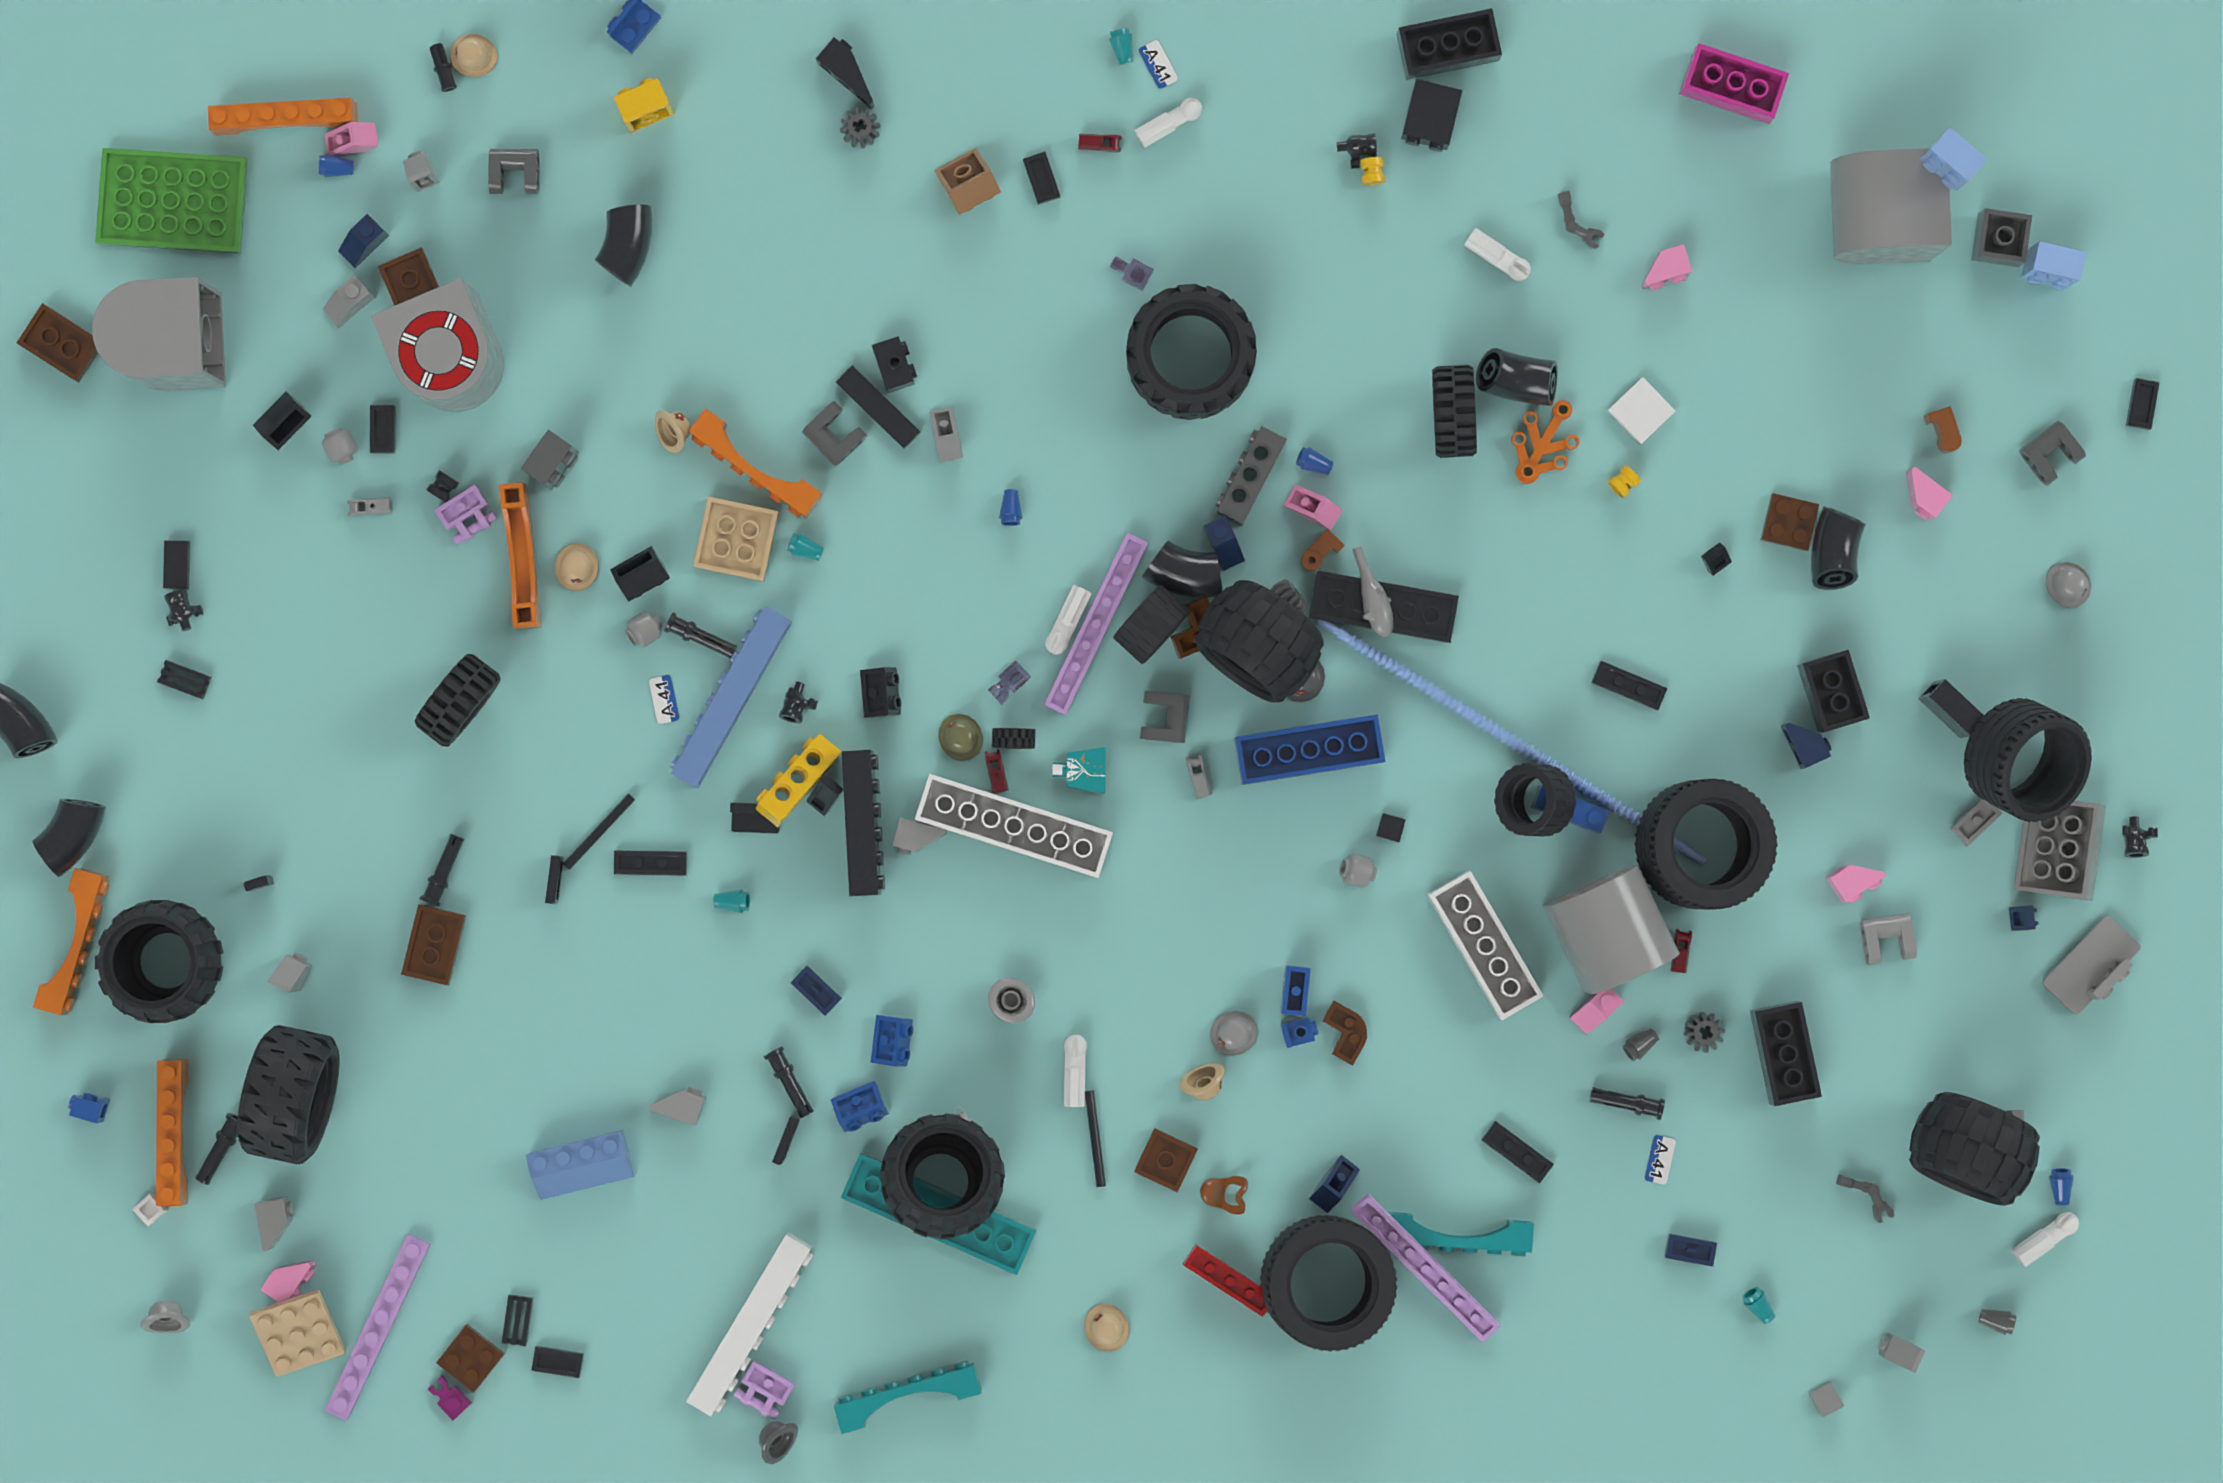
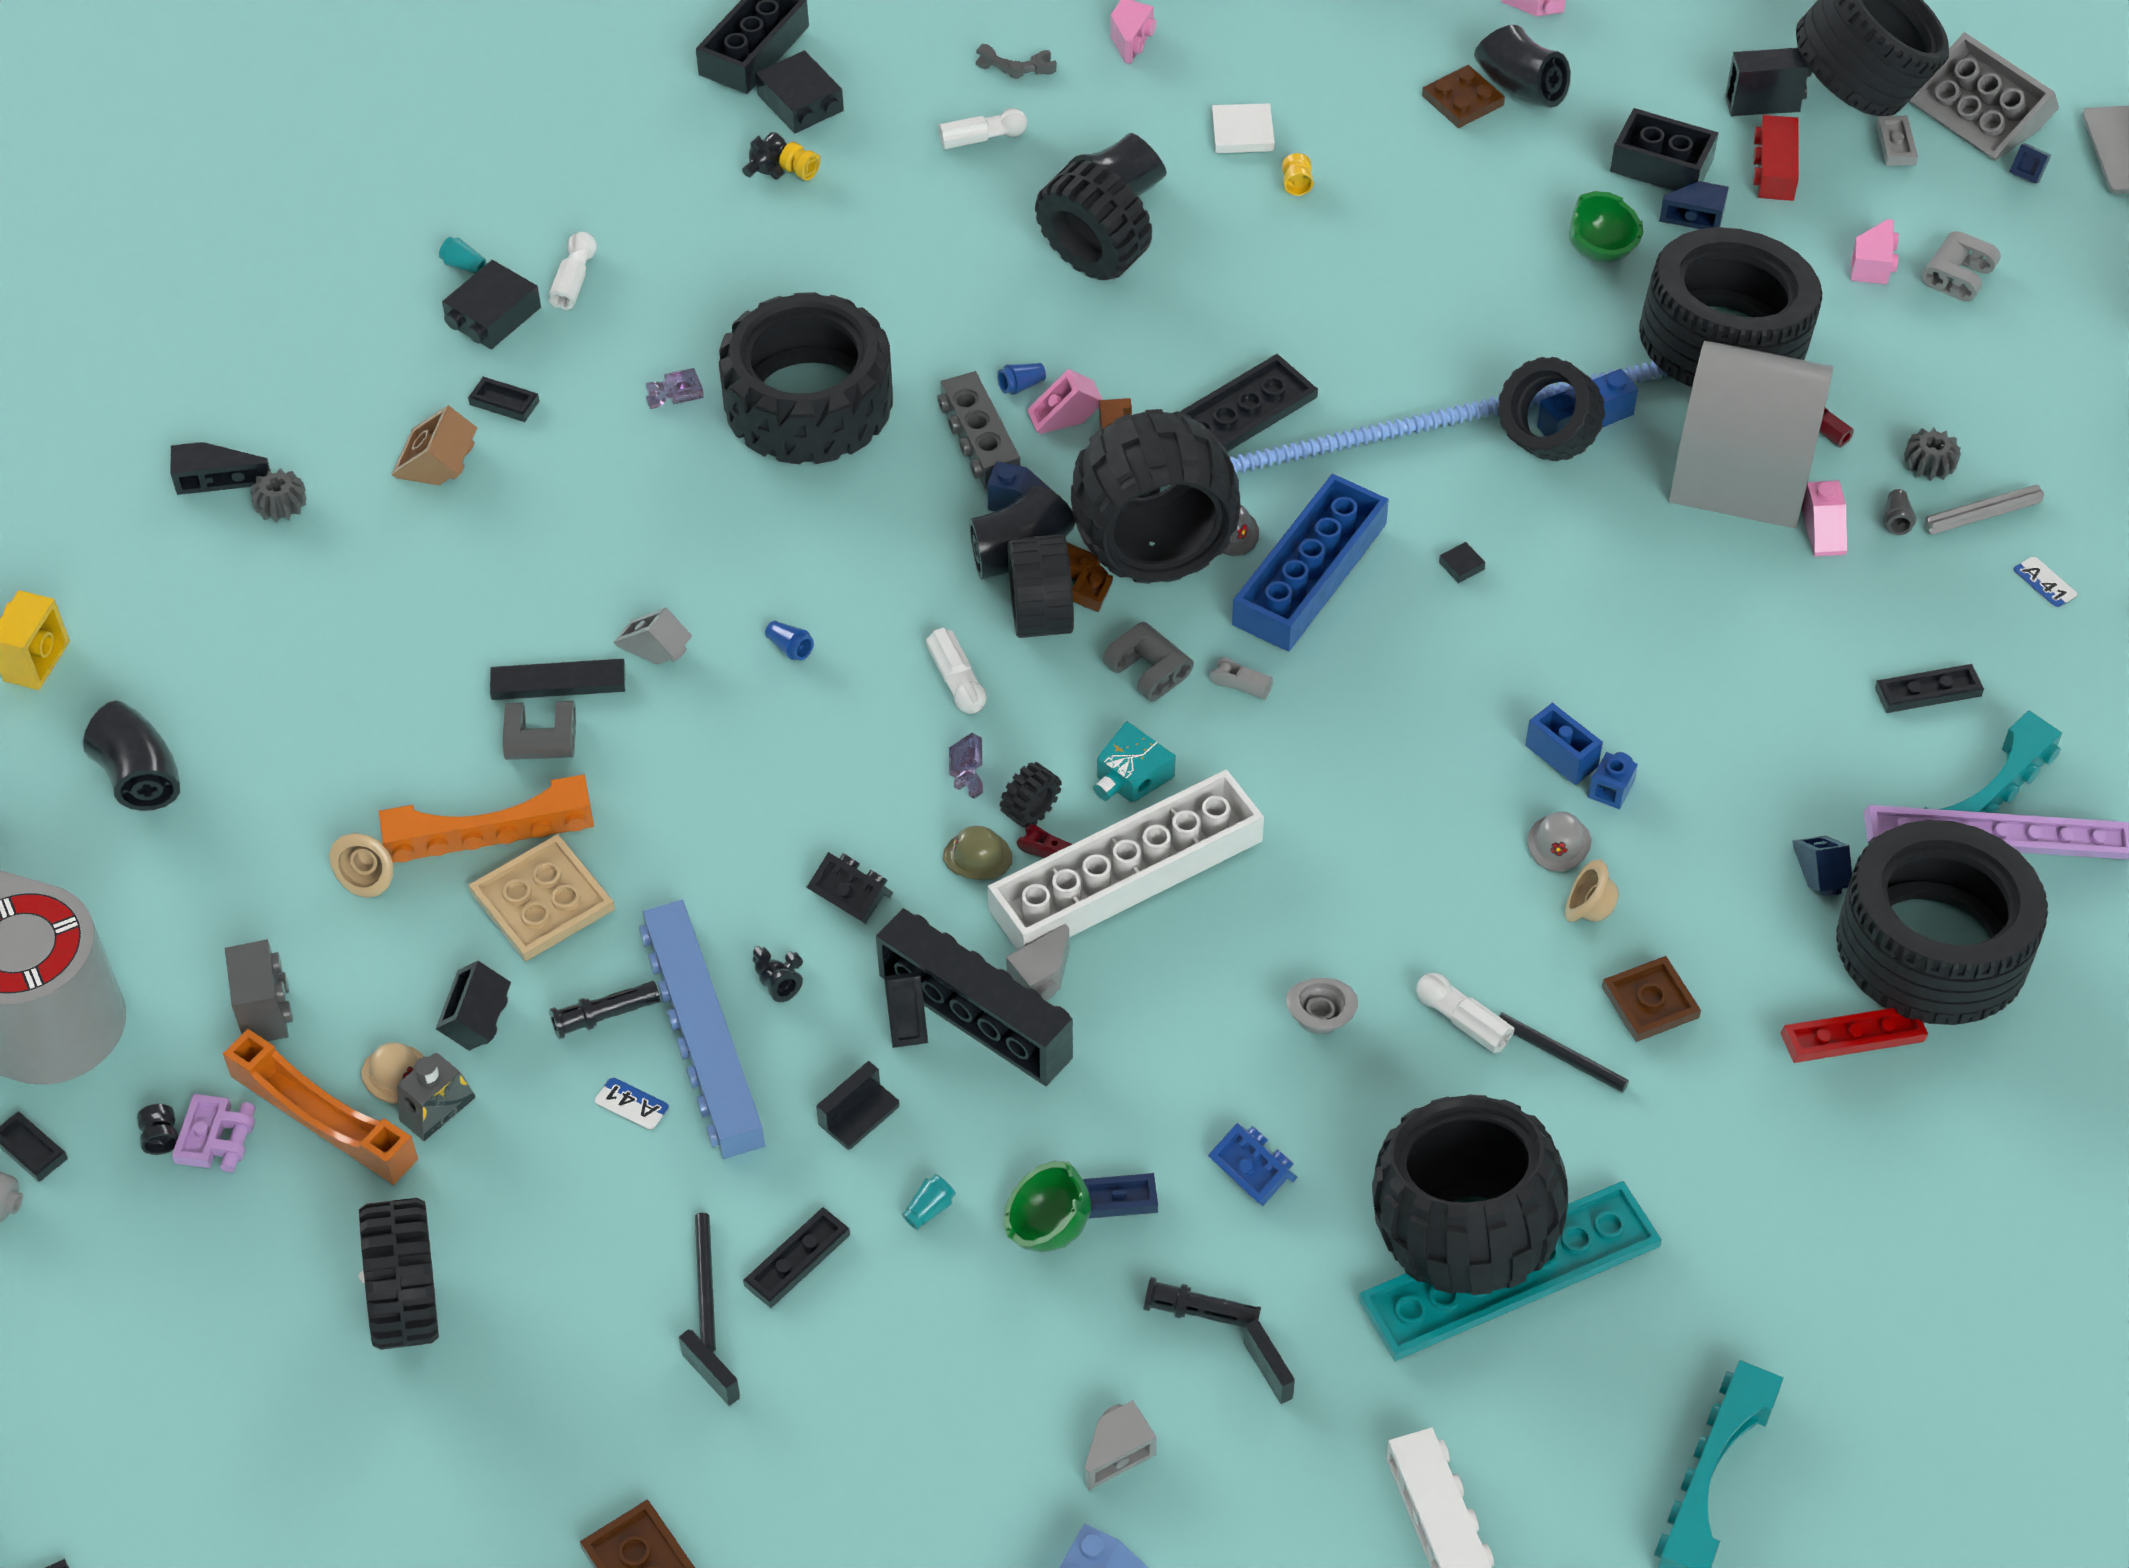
camera: 45 degrees left, 35 degrees down
(372, 506) = (93, 1221): light grey bar -> none
(438, 881) = (576, 1498): black pin -> none
(577, 605) = (431, 1095): none -> dark grey torso
(643, 629) = (535, 1053): light grey head -> none
(771, 967) = (1047, 1208): none -> green cylinder
(777, 810) = (861, 1019): yellow brick -> none
(804, 547) = (621, 842): teal cone -> none
(859, 1107) = (1302, 1254): blue bracket -> none
(893, 364) = (532, 631): black brick -> none
(1095, 142) = (526, 333): dark red bar -> none
(1096, 624) = (989, 654): lavender plate -> none
(1098, 102) = (491, 304): none -> black brick
(1106, 1327) = (1808, 1202): tan hat -> none
(1158, 64) = (512, 250): sticker -> none
(1213, 1193) = (1731, 984): dark orange piece -> none
(1352, 1028) = (1643, 731): reddish brown plate -> none
(1357, 870) = (1481, 611): light grey head -> none
(1375, 601) = (1210, 406): light grey piece -> none
(1485, 945) = (1669, 557): white brick -> none
(1541, 445) = (1207, 234): orange plant -> none
(1629, 685) = (1503, 297): black tile -> none
(1638, 1104) = (1966, 553): black pin -> none
(1686, 1089) = (1983, 509): none -> light grey axle
(1716, 559) = (1444, 158): black plate -> none
(1728, 709) = (1604, 227): none -> green cylinder
(1785, 1053) = (2015, 402): black brick -> none
(1893, 759) = (1776, 157): none -> red brick
(2136, 838) = (2023, 48): black piece -> none

